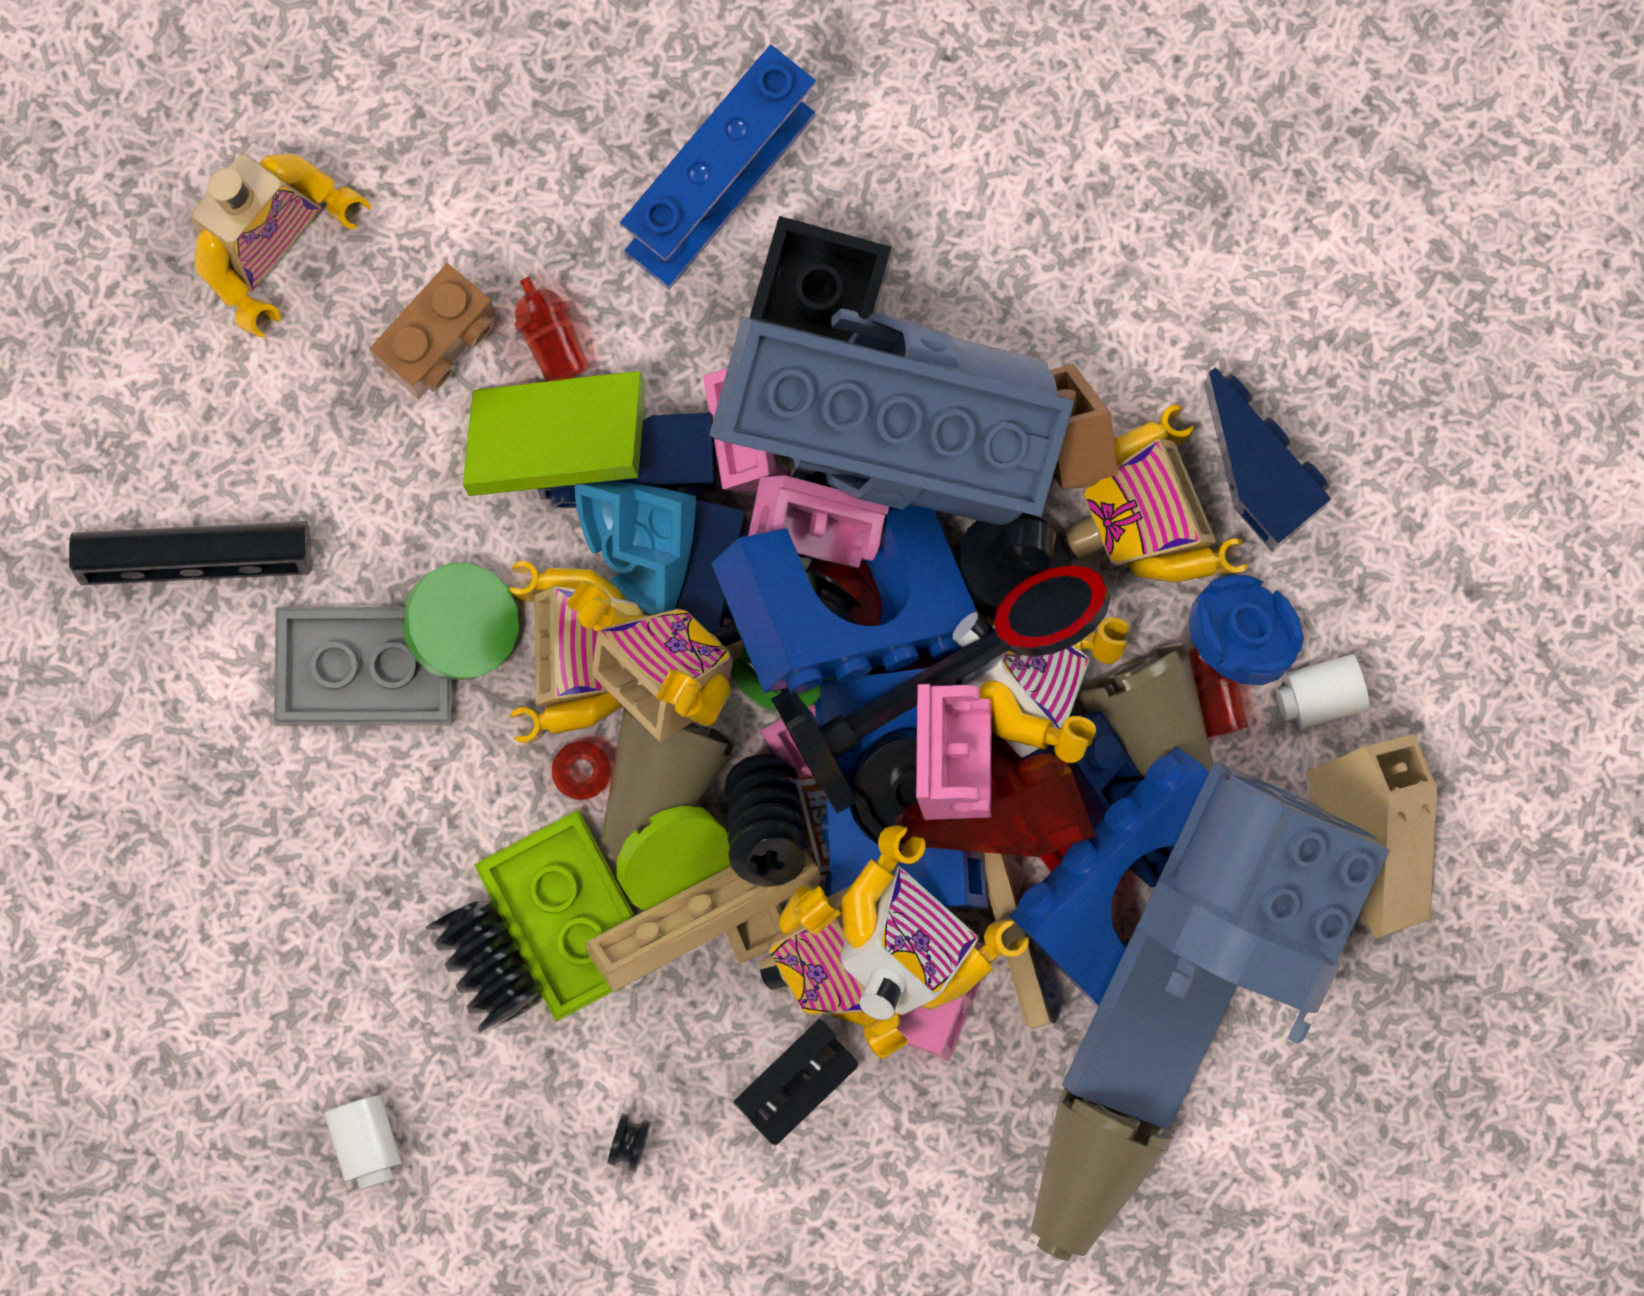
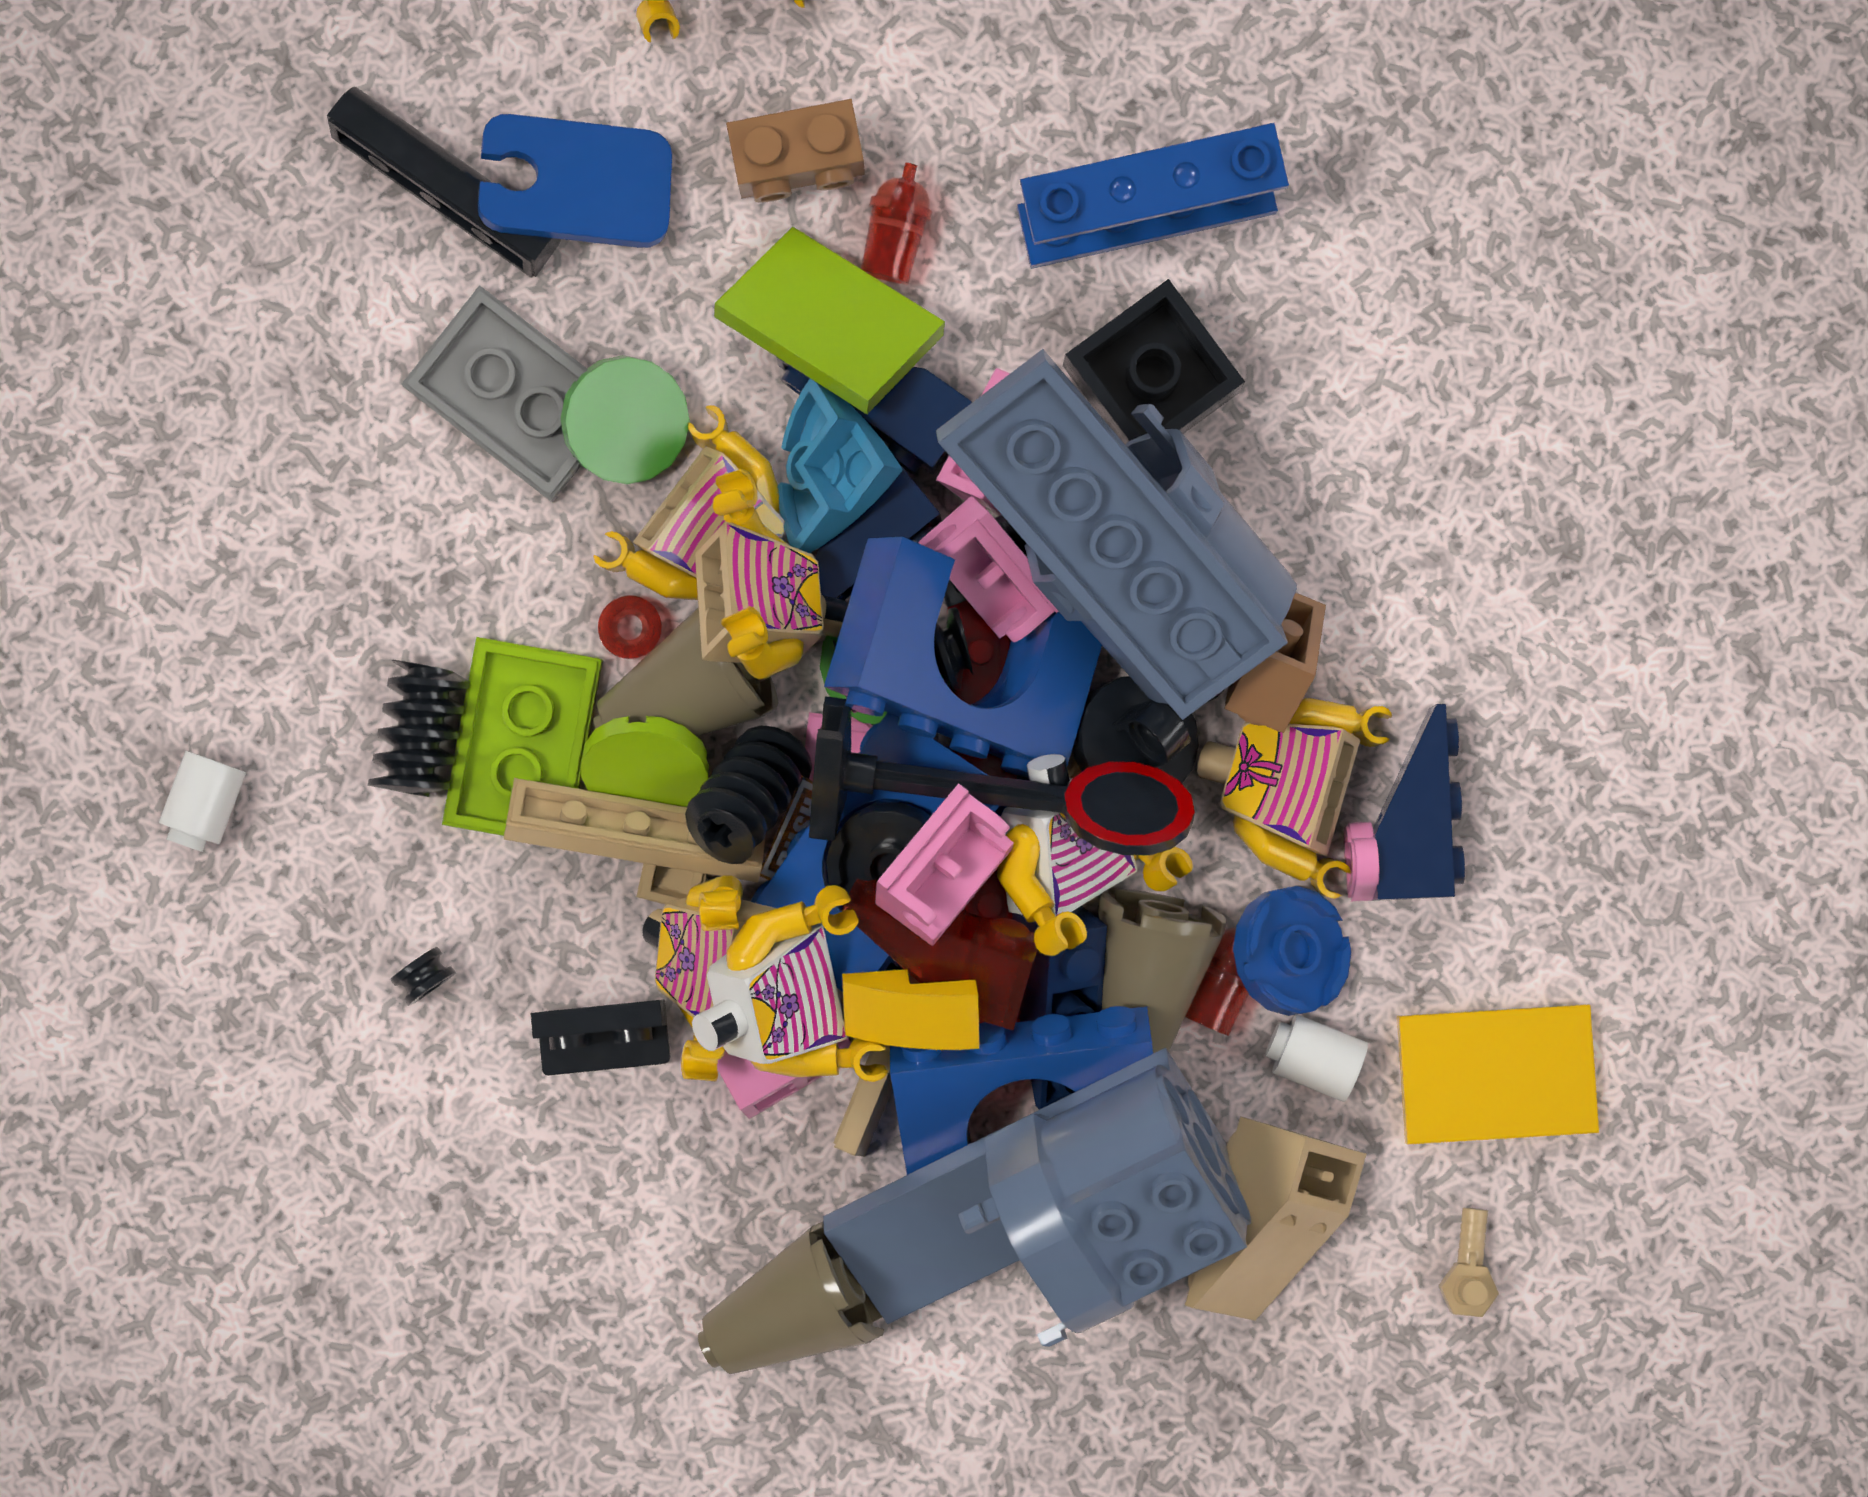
camera: 40 degrees right, 5 degrees up
(299, 470) = (589, 185): none -> blue piece
(1019, 877) = (893, 1012): none -> yellow slope
(1242, 522) = (1363, 859): none -> bright pink tile
(1461, 605) = (1497, 1074): none -> yellow tile
(1560, 771) = (1468, 1284): none -> tan piece

